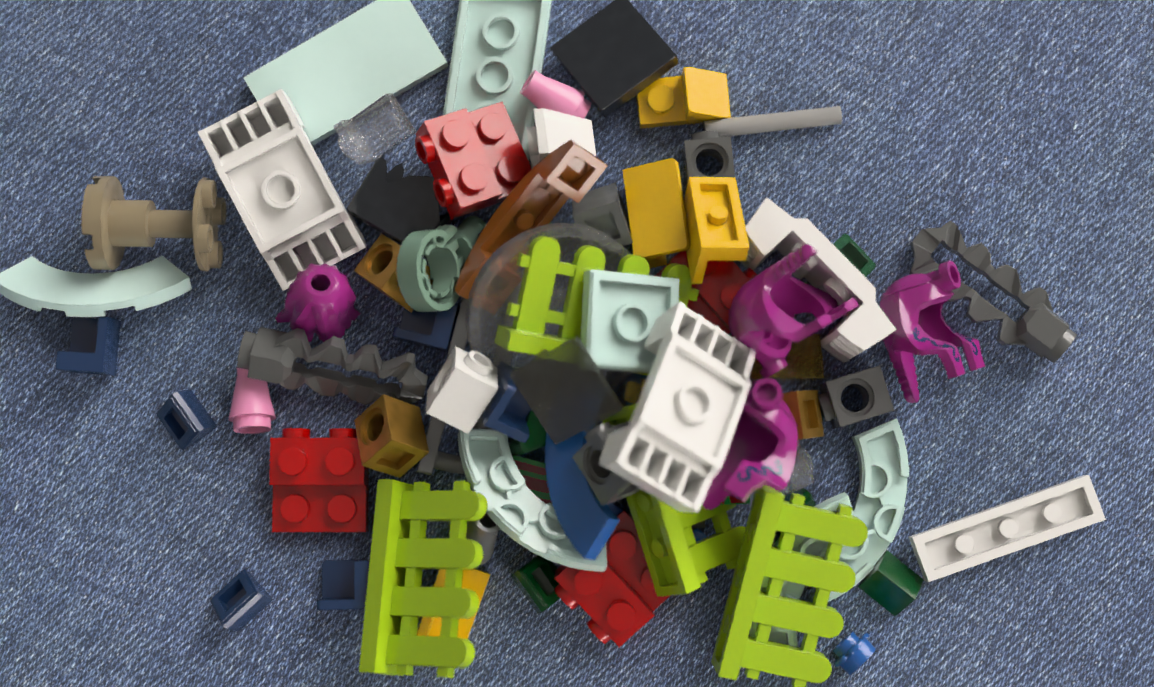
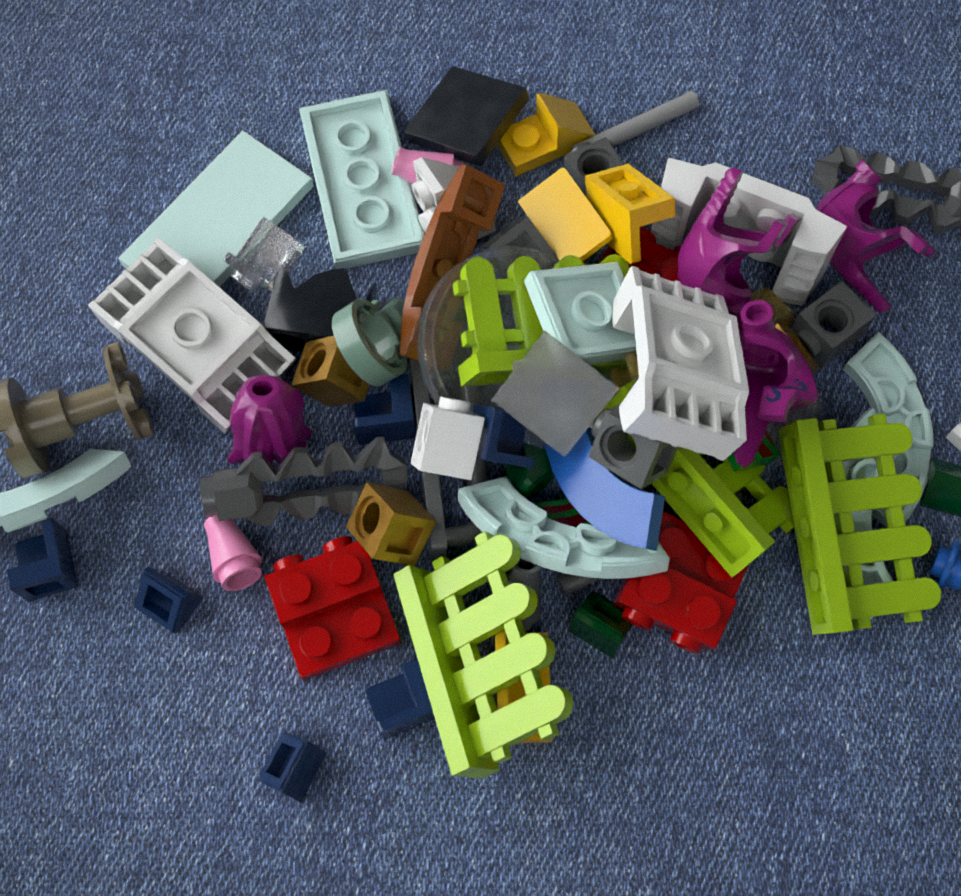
camera: 20 degrees left, 15 degrees down
(472, 157) = (366, 238): plate -> none

